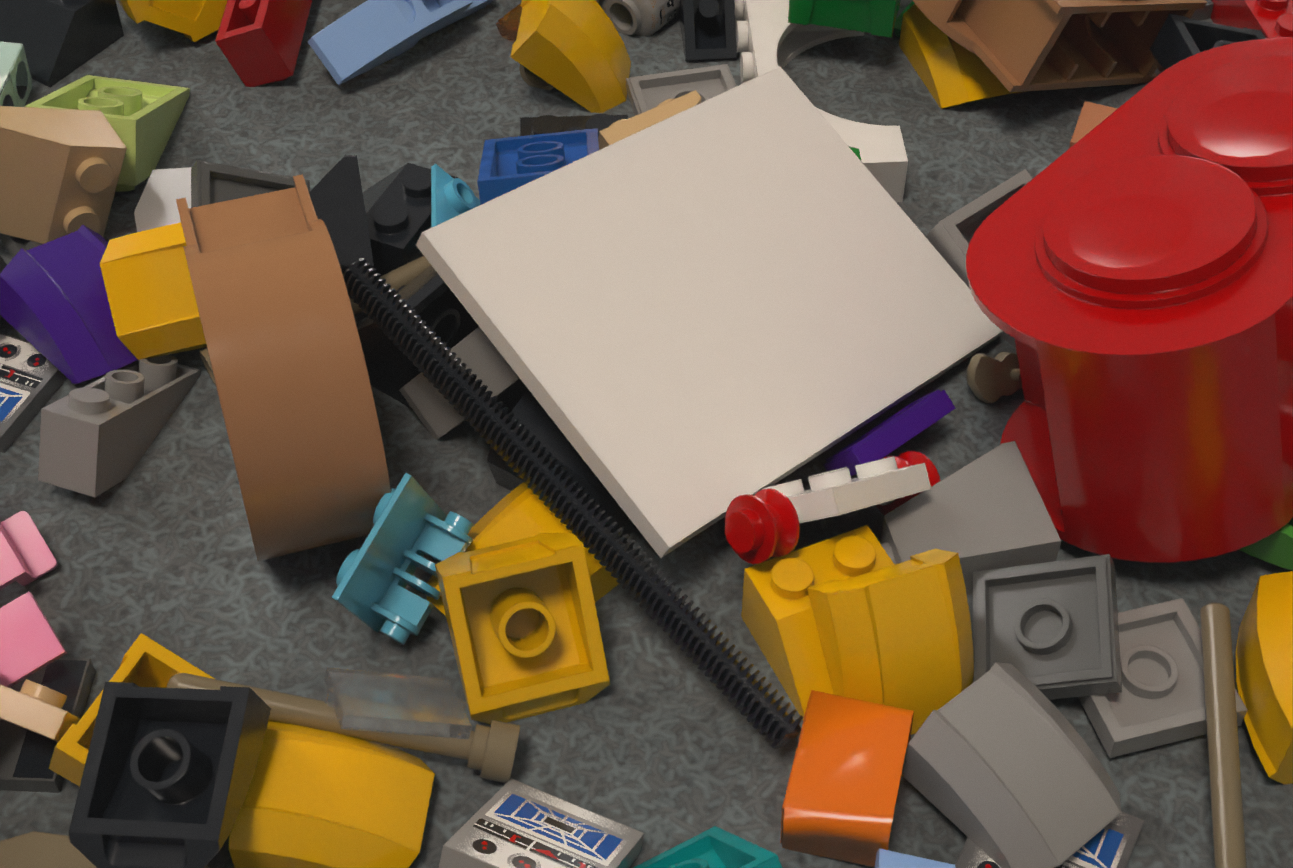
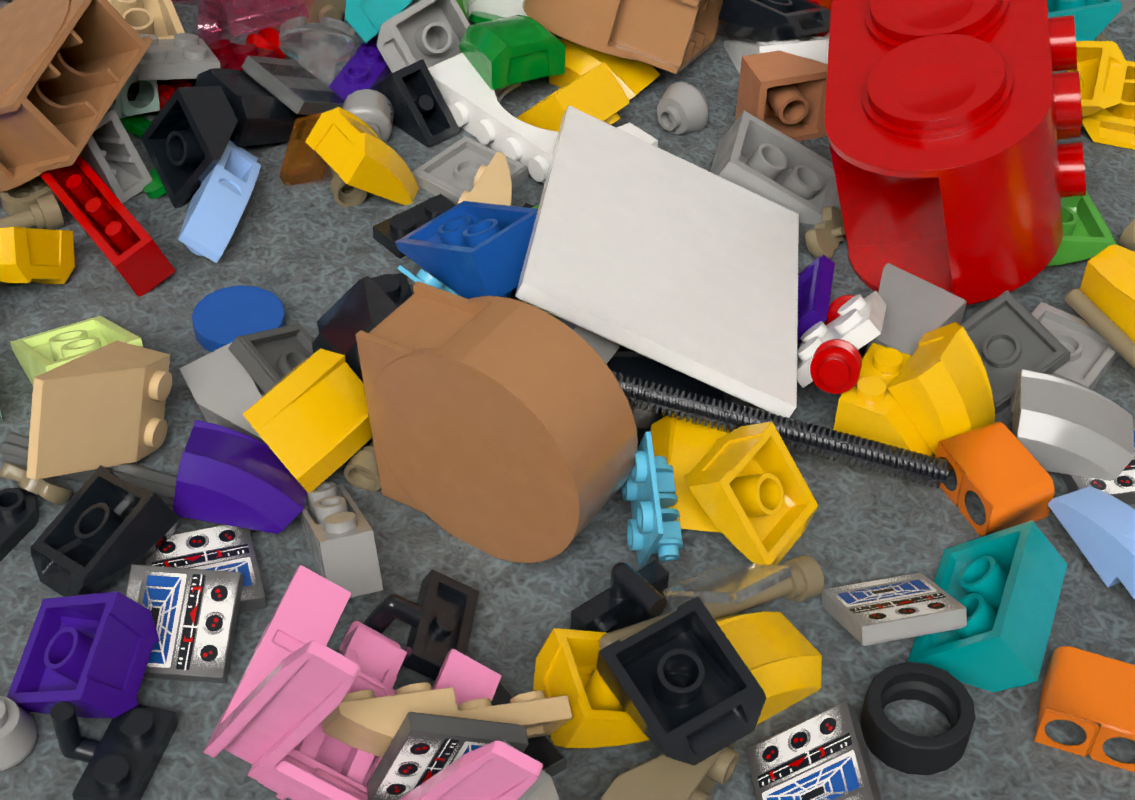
camera: 40 degrees left, 5 degrees down
(93, 564) = (438, 621): none -> black plate
(272, 655) = (629, 600): none -> black plate
(295, 146) = (235, 313): none -> blue tile
(875, 83) = (592, 93): none -> yellow slope
(996, 141) = (682, 109): none -> light grey cone

